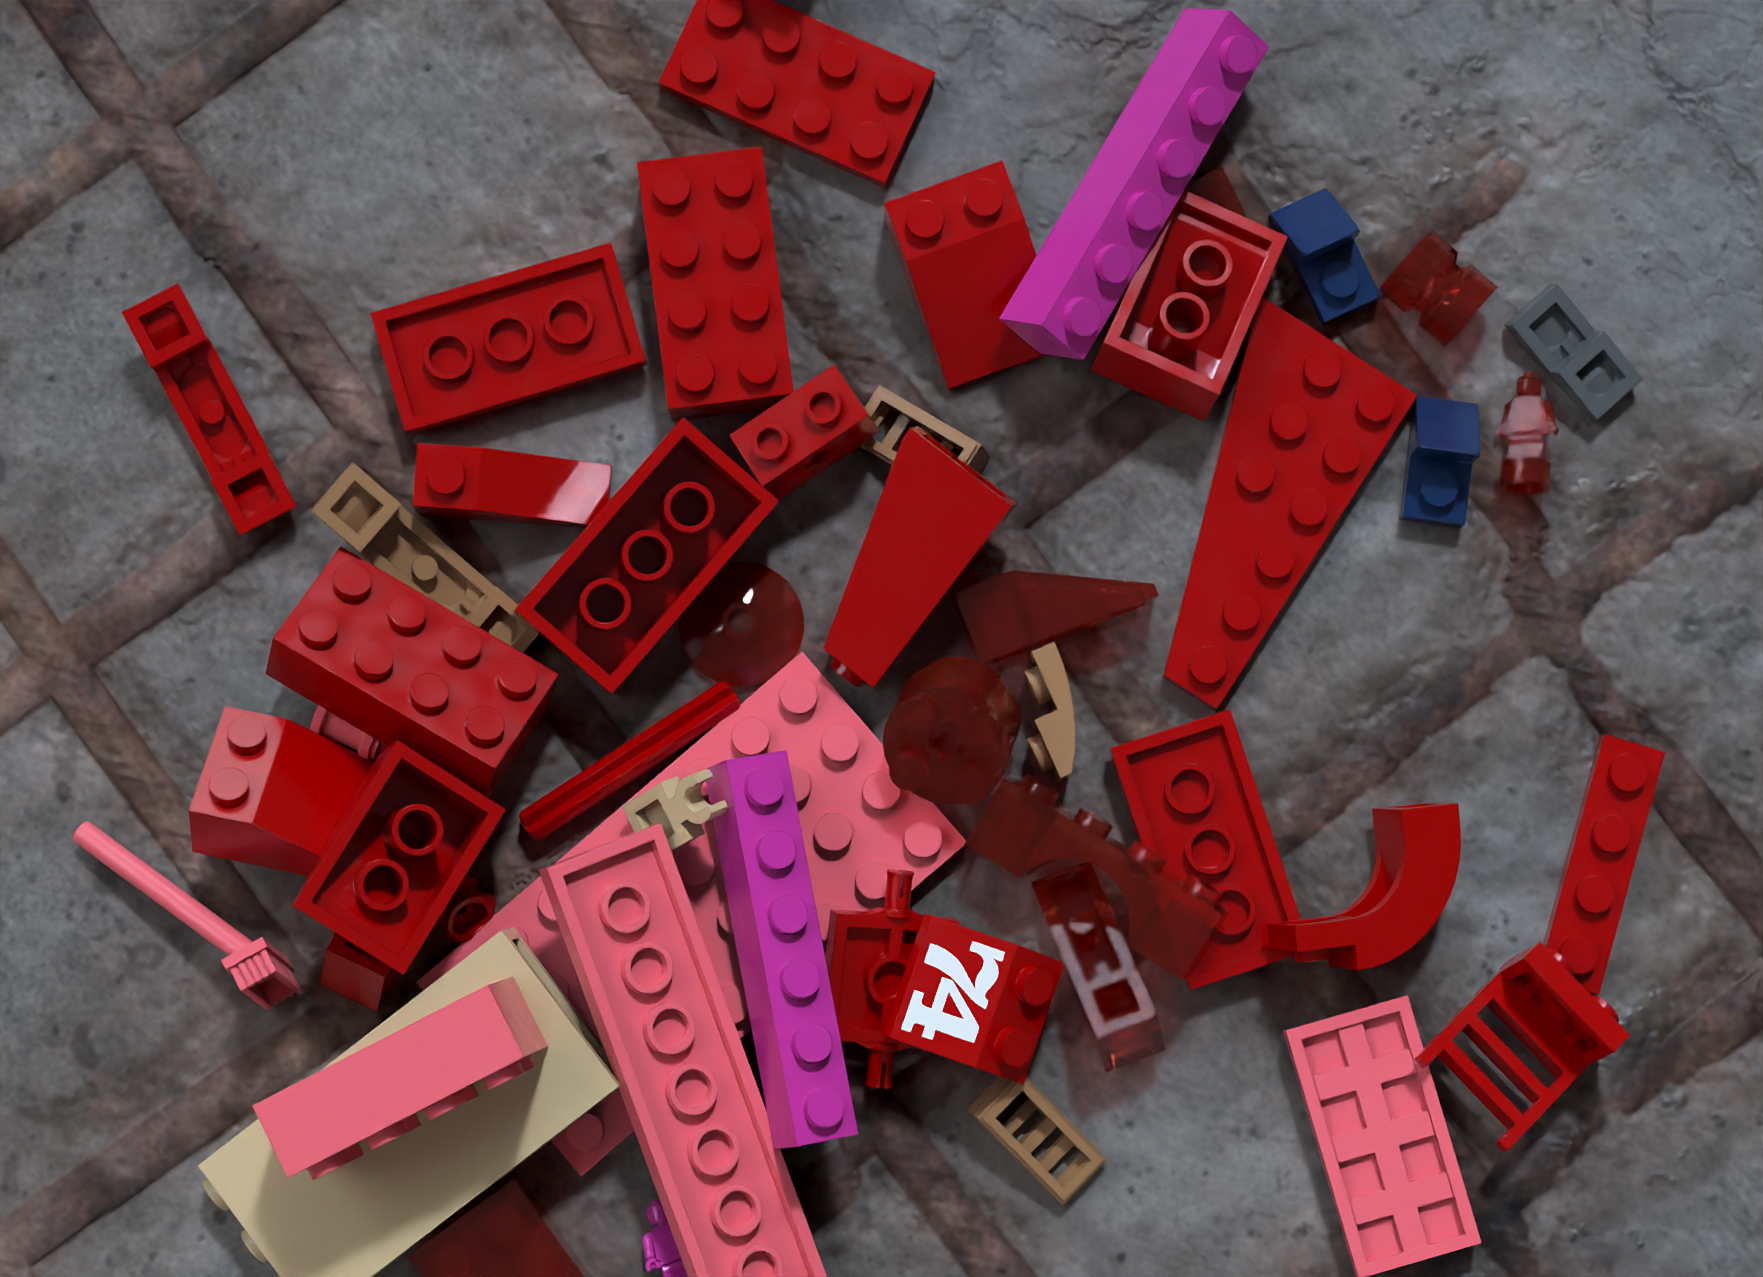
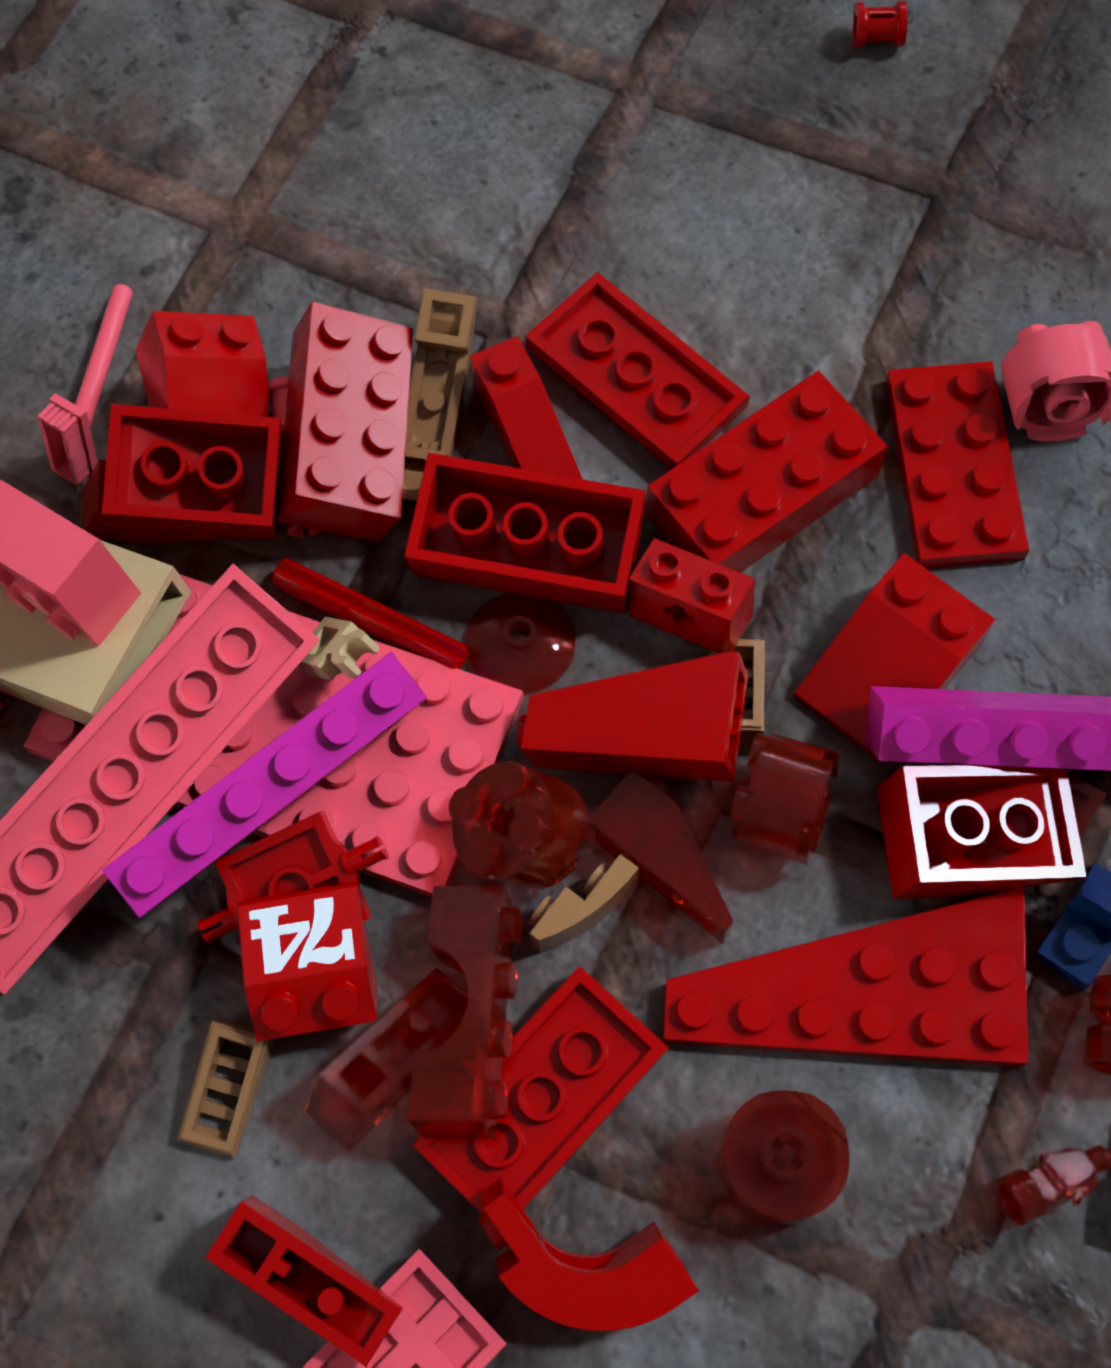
camera: 70 degrees right, 15 degrees down
(210, 409) = (472, 213): red slope -> none
(466, 911) = (202, 546): red plate -> none
(1063, 463) = (785, 798): none -> clear red brick
(1259, 1145) = (304, 1279): none -> red slope
(1400, 631) = (820, 1157): none -> clear red brick
(1440, 461) = (984, 1116): dark blue slope -> none

